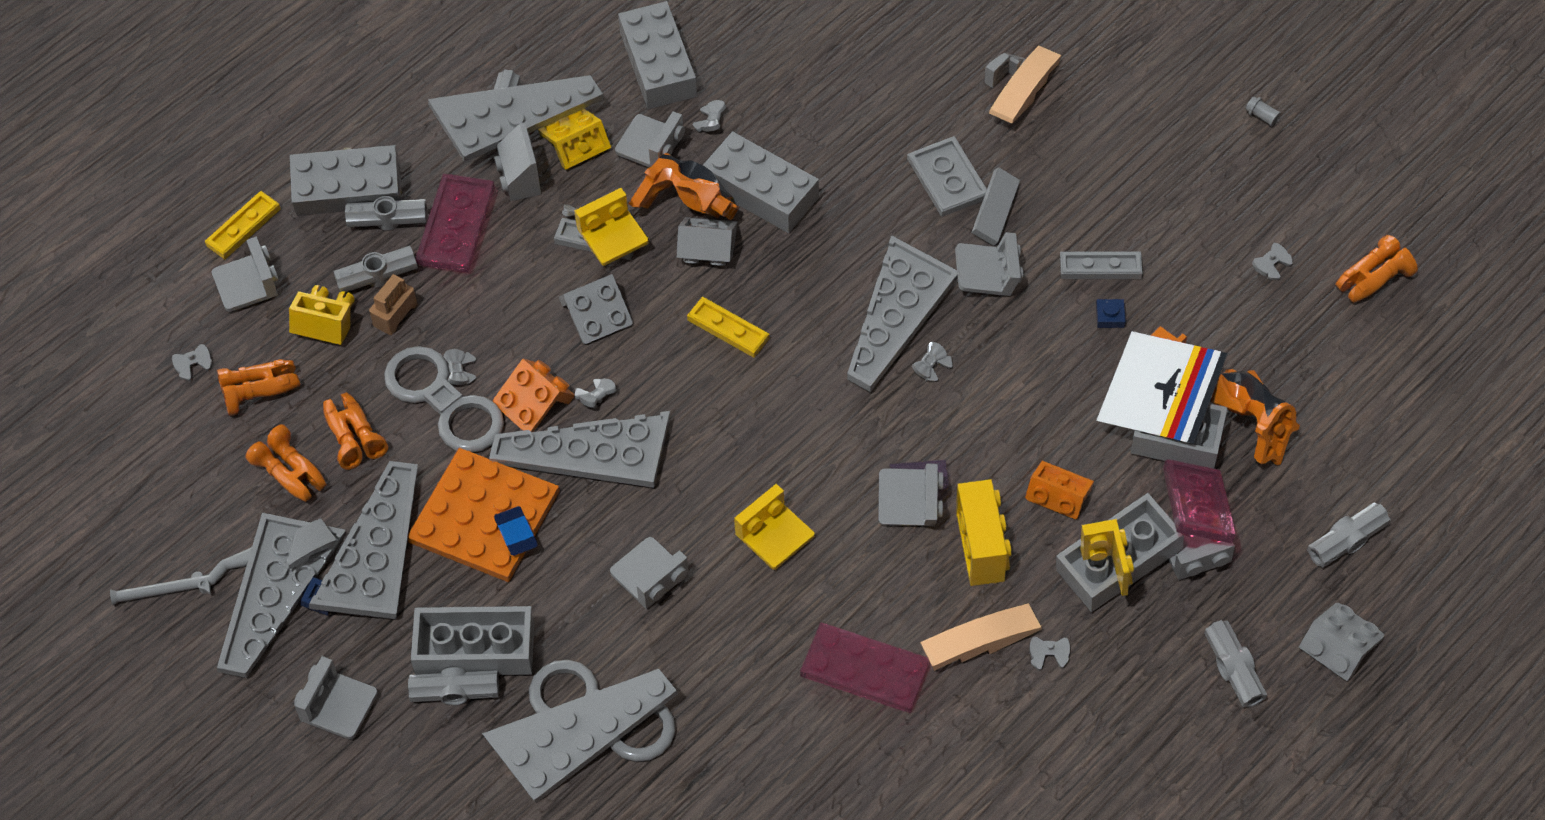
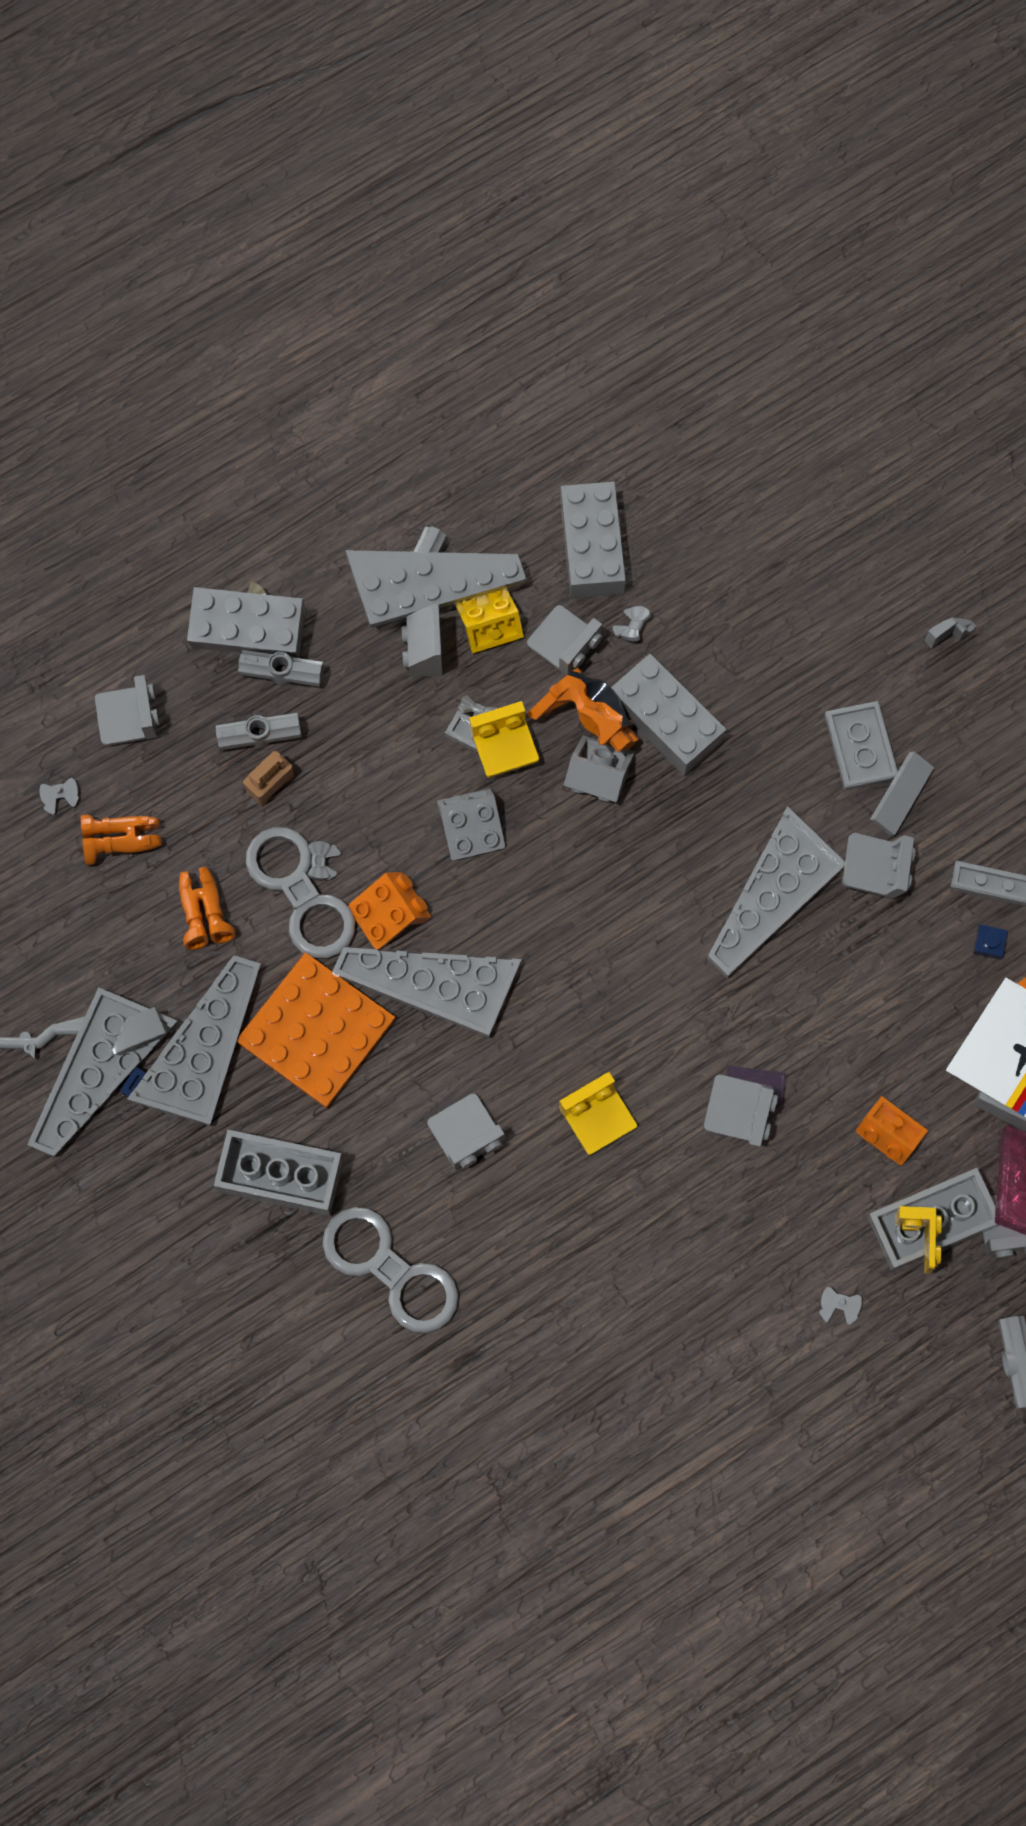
camera: 10 degrees right, 15 degrees up
(242, 225) = (135, 647): yellow tile -> none
(279, 442) = (110, 920): orange piece -> none
(319, 316) = (193, 777): yellow brick -> none
(334, 700) = (135, 1204): light grey bracket -> none
(453, 686) = (251, 1214): light grey piece -> none
(455, 223) = (348, 693): clear pink plate -> none
(515, 530) = (343, 1059): clear blue sticker -> none
(565, 738) = (348, 1295): light grey wing -> none
(590, 399) = (445, 925): light grey piece -> none
(728, 327) = (600, 872): yellow tile -> none
(865, 667) = (655, 1281): clear pink plate -> none
(934, 354) = (801, 951): light grey piece -> none
(980, 635) = (776, 1276): light nougat slope -> none
(982, 532) = (803, 1167): yellow brick -> none
(1024, 84) = (965, 656): light nougat slope -> none

